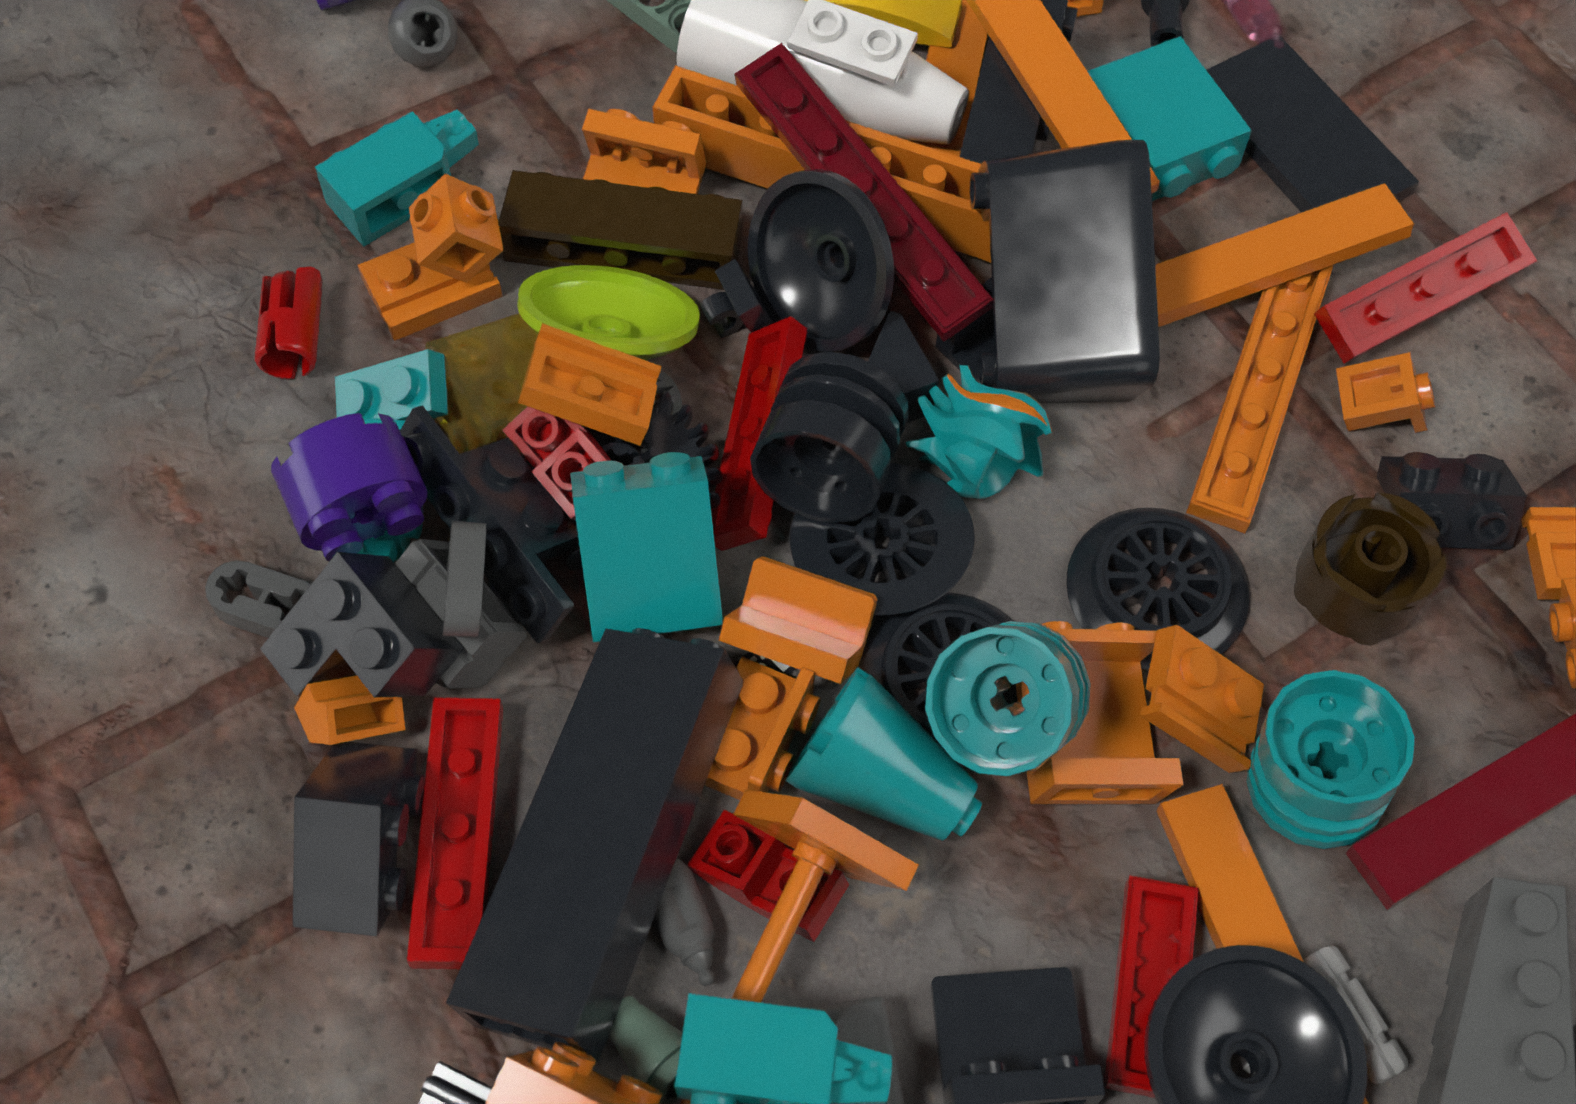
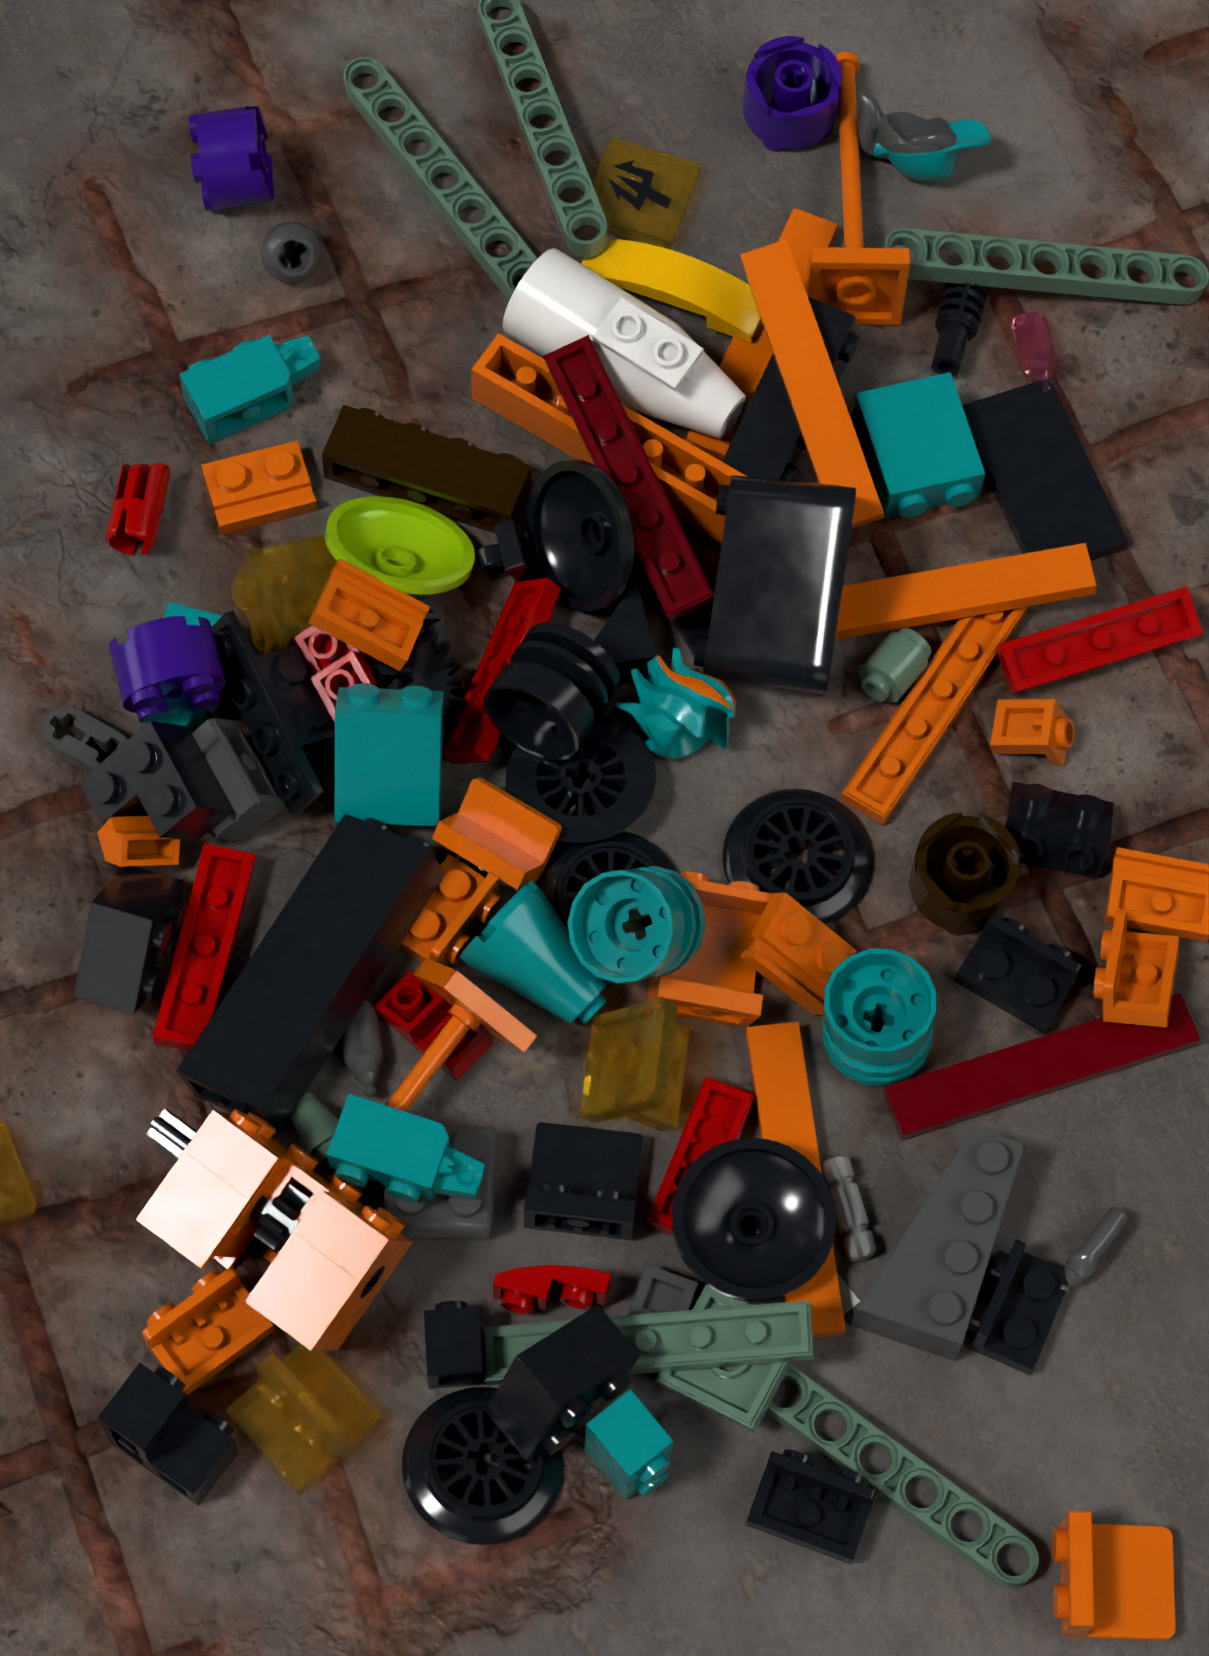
camera: 10 degrees right, 5 degrees up
(395, 387) = (212, 586): teal plate -> none
(455, 228) = (286, 454): orange brick -> none
(464, 580) = (242, 758): dark grey beam -> none
(643, 152) = (456, 410): orange bracket -> none
(1038, 878) = (636, 1065): none -> clear yellow bracket
(1208, 351) = (894, 665): none -> sand green brick
(1465, 674) = (1019, 972): none -> black bracket

